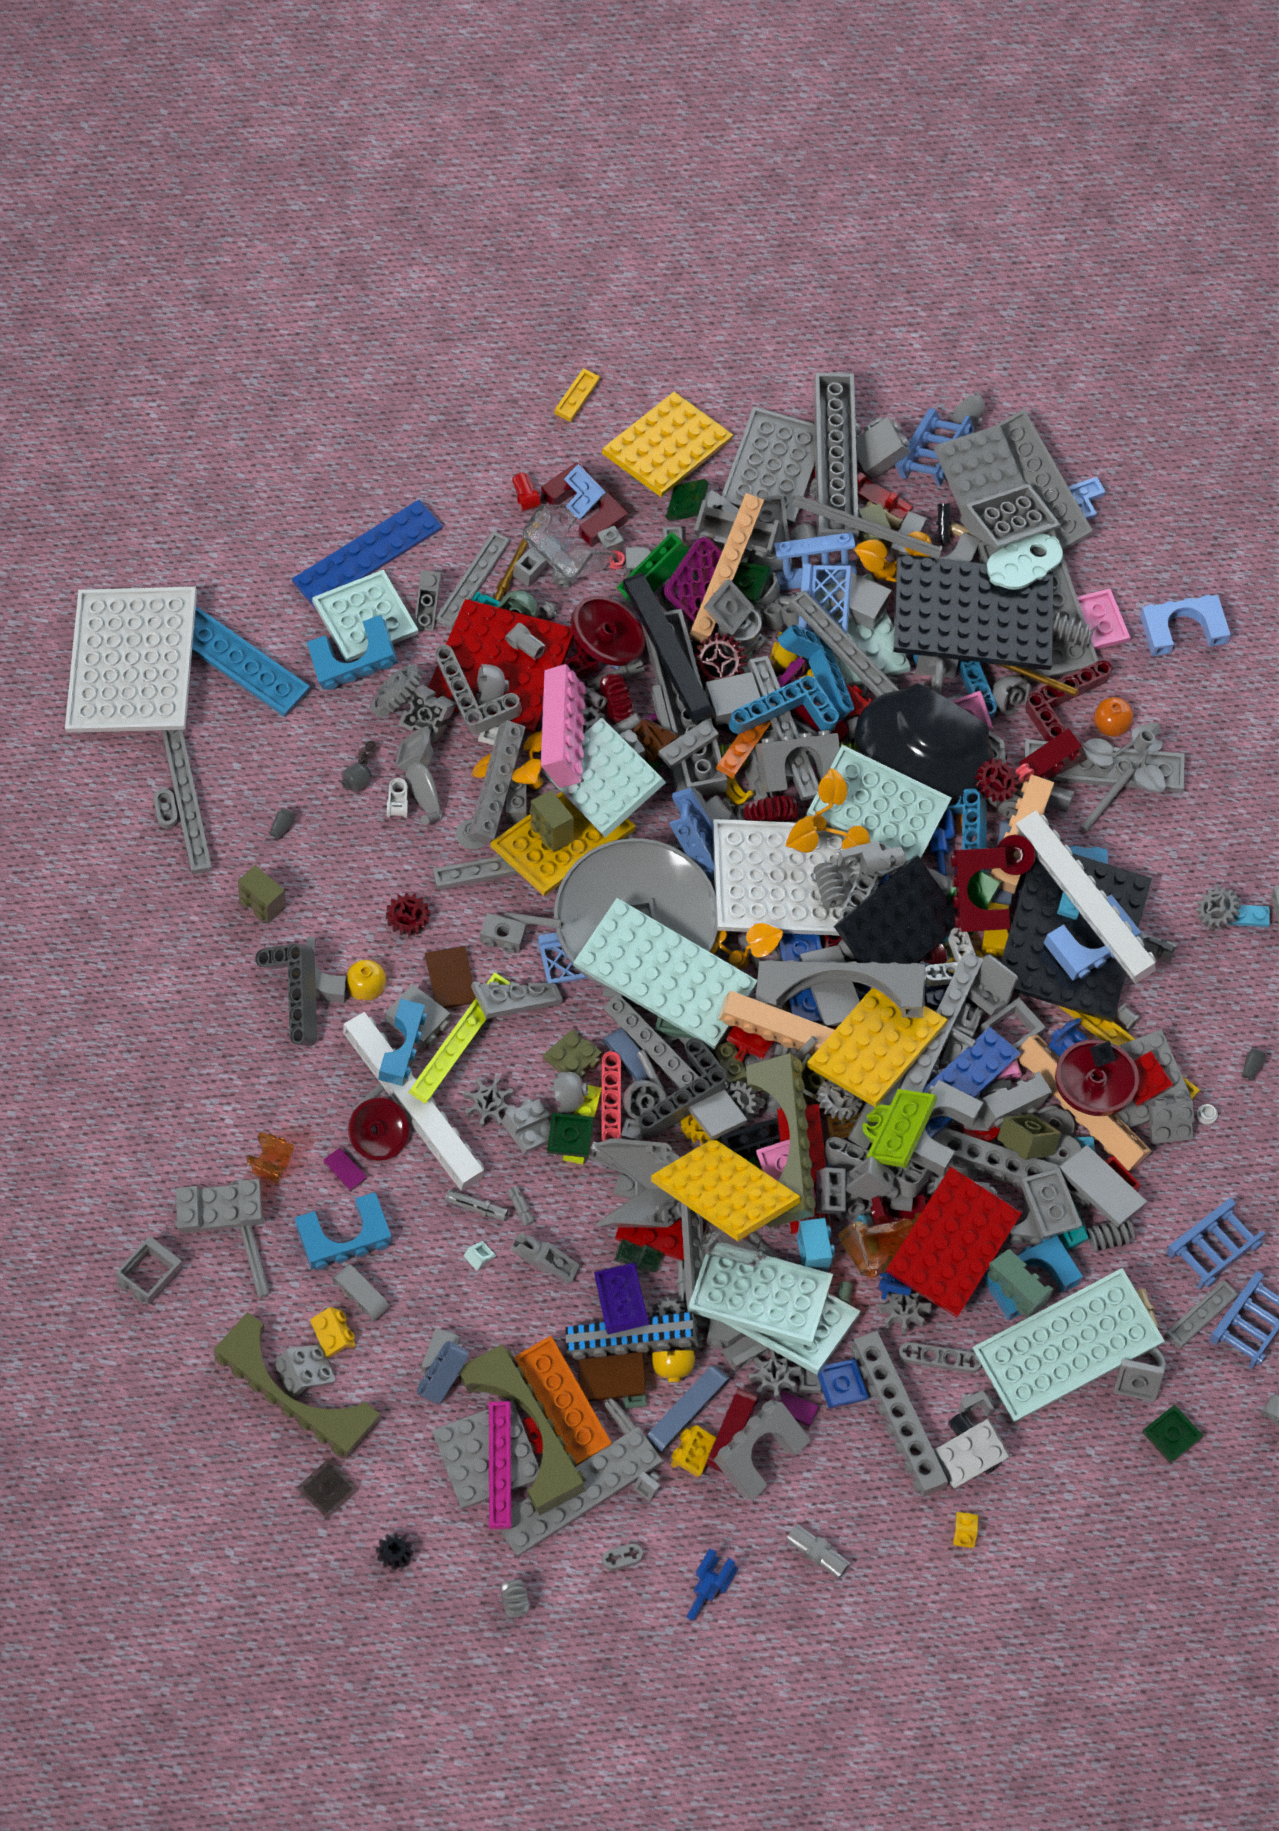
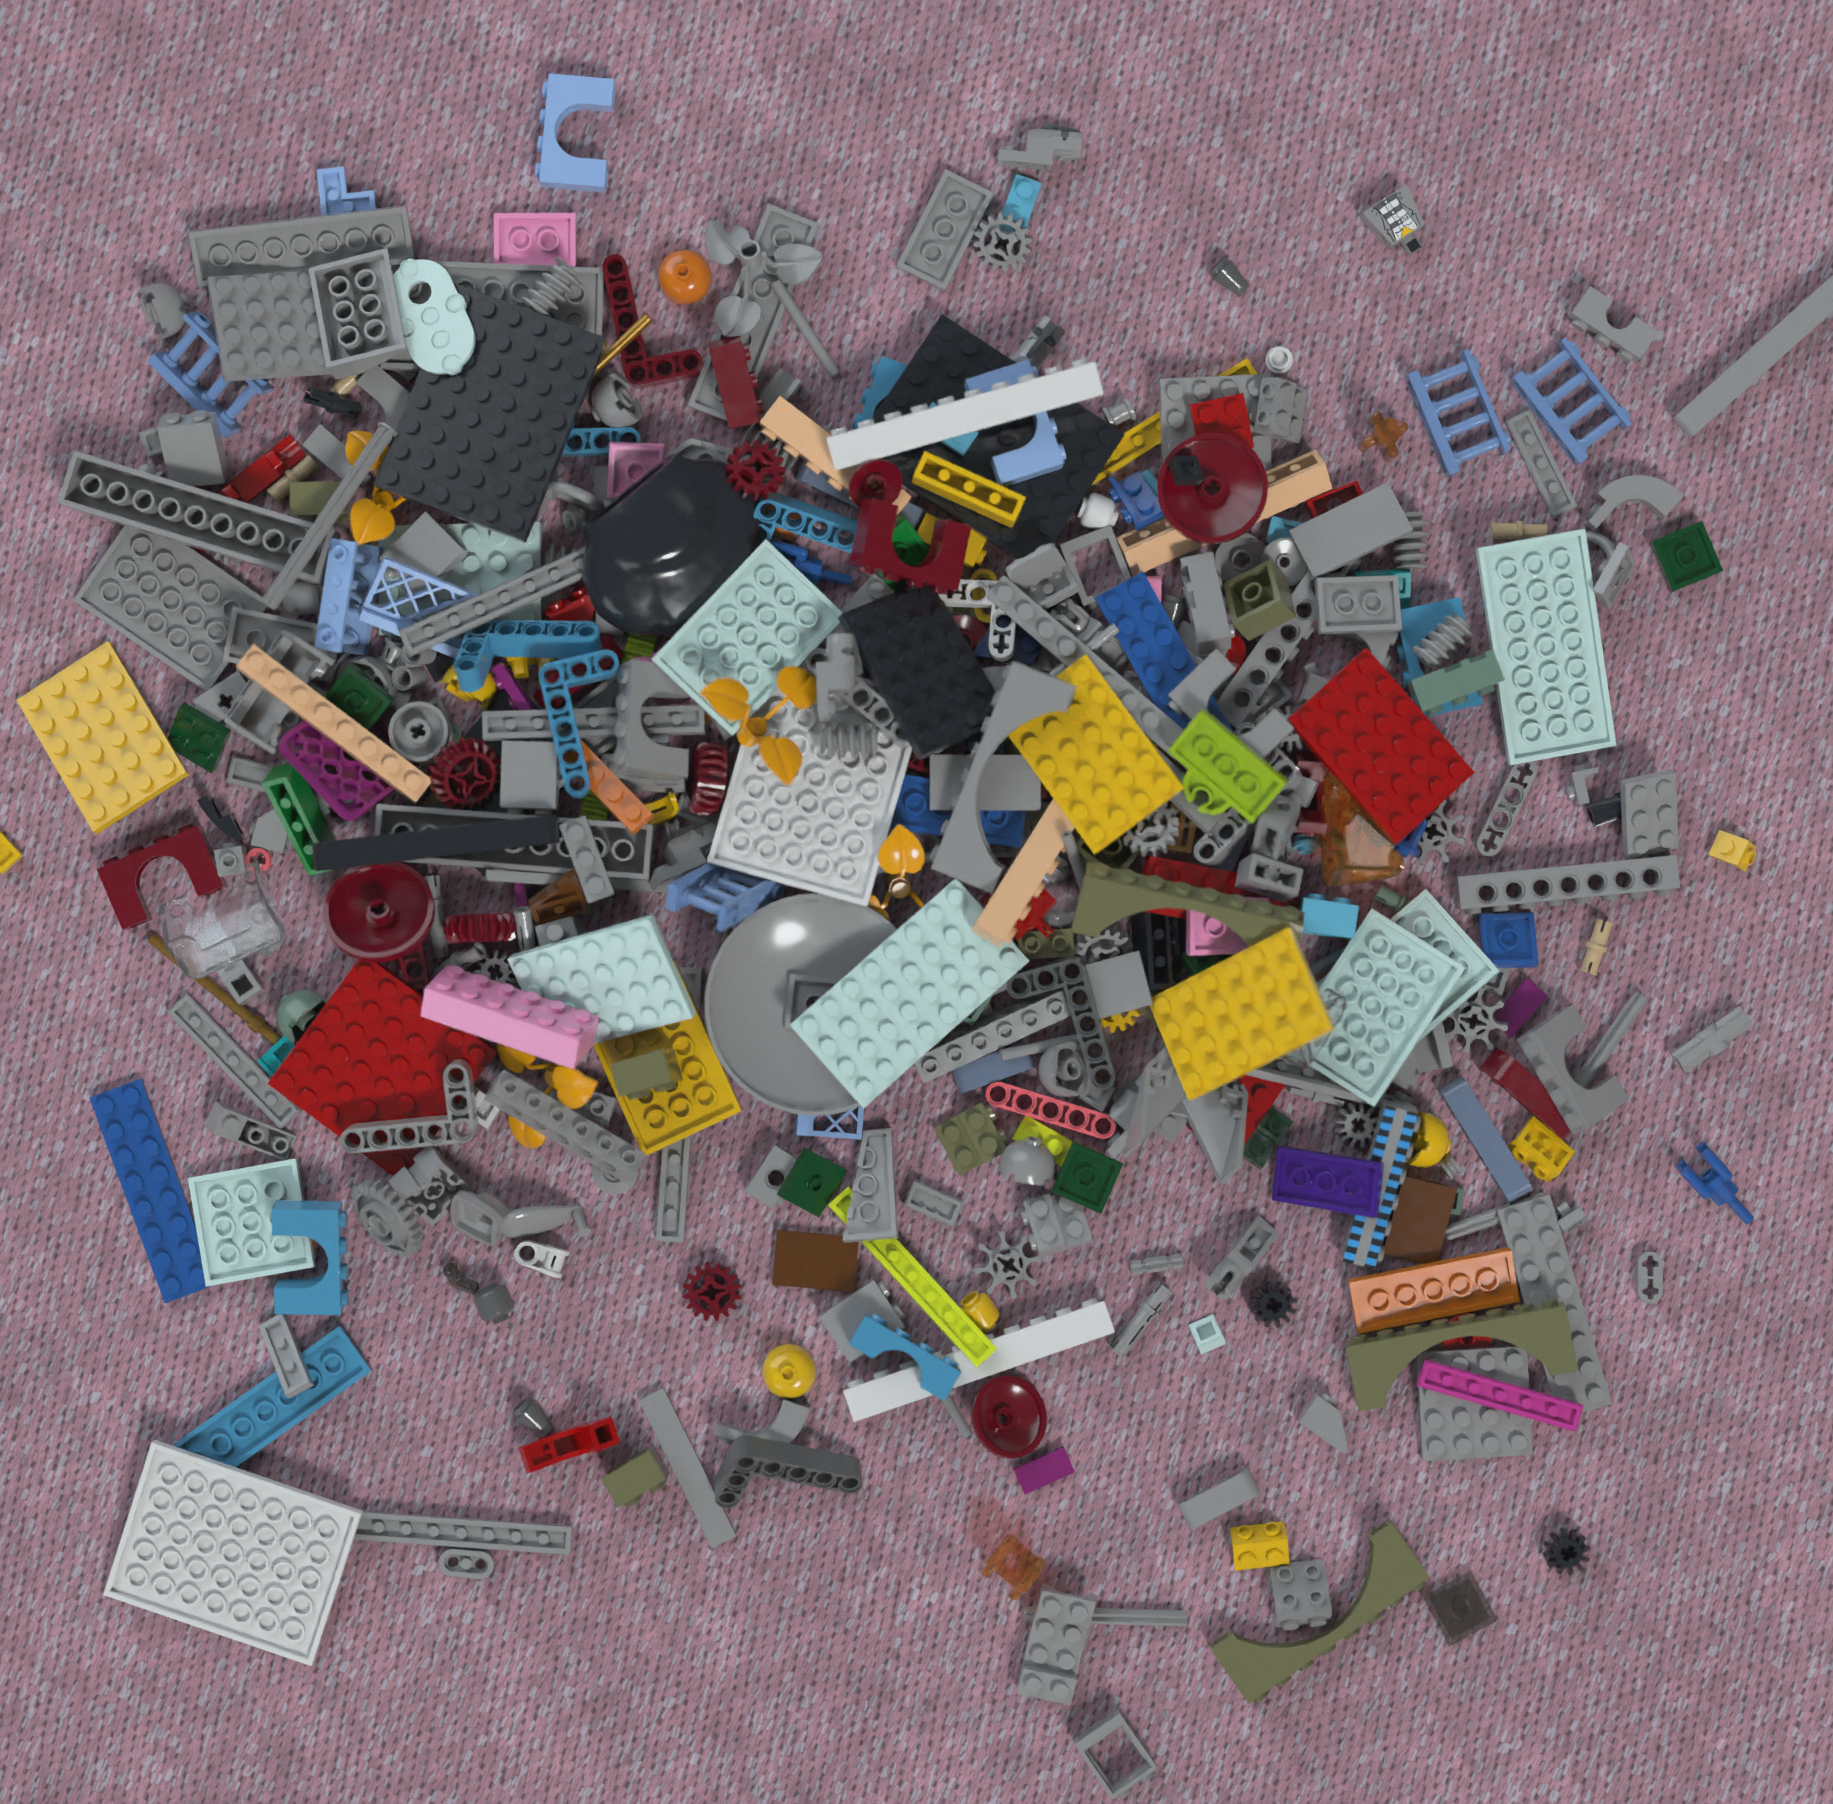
camera: 65 degrees left, 25 degrees up
(276, 857) = (569, 1443): none -> red arch
(276, 932) = (687, 1467): none -> light grey tile
(279, 656) = (286, 1355): none -> light grey plate
(322, 1251) = (1148, 1533): dark azure arch -> none
(442, 1372) = (1360, 1430): sand blue beam -> none
(448, 1093) = (980, 1310): none -> yellow head
(490, 683) = (419, 1092): light grey cylinder -> none
(507, 956) = (811, 1182): none -> dark green plate
(514, 1598) = (1671, 1425): light grey gear -> none
(517, 1043) = (933, 1203): none -> light grey plate
(519, 1284) = (1279, 1297): none -> black gear
(522, 639) = (362, 1030): light grey piece -> none
(525, 492) = (125, 950): red piece -> none
(535, 920) = (778, 1135): light grey piece -> none
(550, 608) = (310, 973): light grey plate -> none
(587, 492) = (151, 871): light blue plate -> none
(635, 531) = (226, 824): none -> black slope
(659, 1388) = (1449, 1166): none -> light grey bush
(728, 607) = (400, 743): light grey plate -> none
(794, 1480) = (1610, 1039): none -> light grey axle
(858, 1449) = (1596, 947): none -> tan pin
(1024, 772) = (752, 429): coral bush -> none
(1034, 915) = (968, 489): none -> yellow brick
(1046, 1268) = (1443, 641): none -> light grey piece
(1052, 1018) = (1097, 511): none -> white head
(1180, 1191) = (1383, 435): none -> dark orange plant
(1206, 1378) = (1641, 489): none -> light grey arch
(1210, 869) = (945, 230): none -> light grey plate

